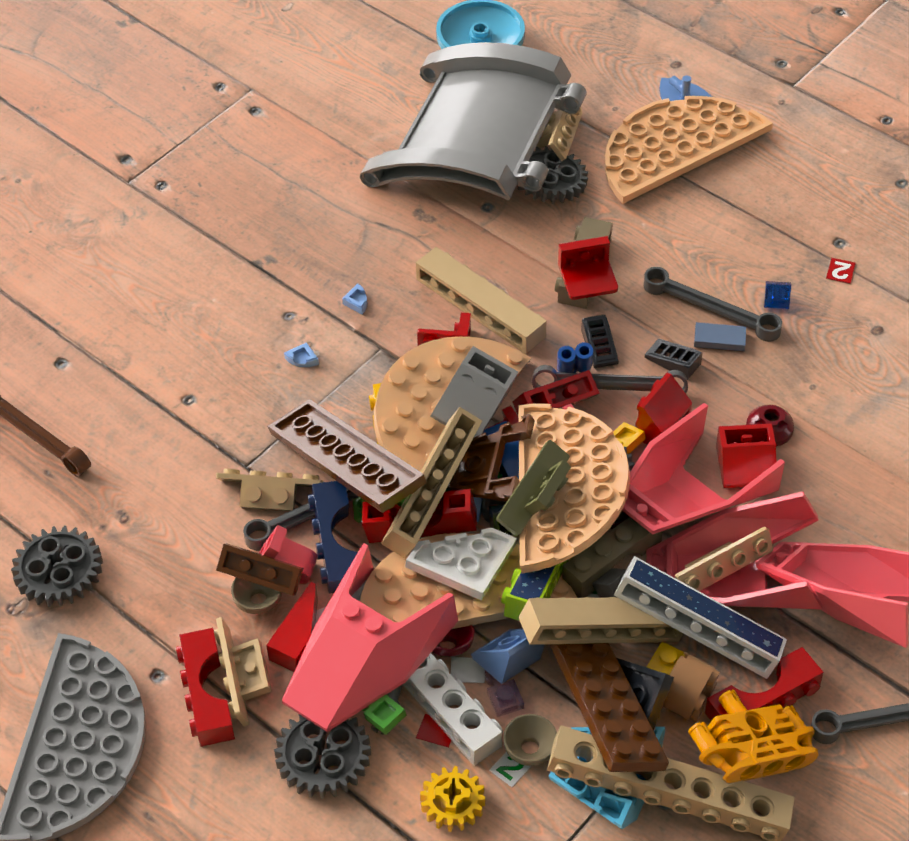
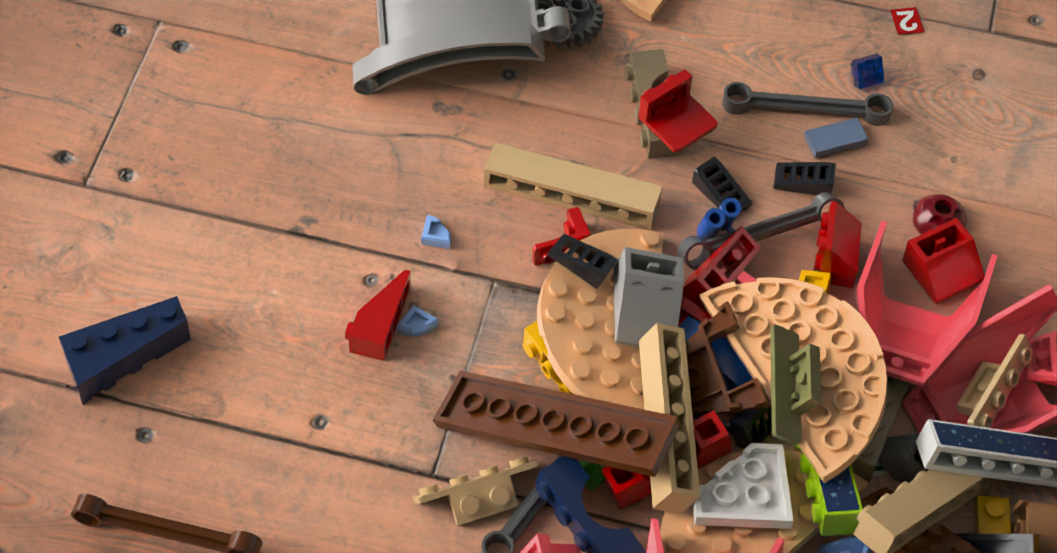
camera: 30 degrees left, 5 degrees up
(79, 295) = (122, 345): none -> dark blue wedge
(267, 344) = (377, 320): none -> red slope
(444, 363) = (599, 263): none -> black slope

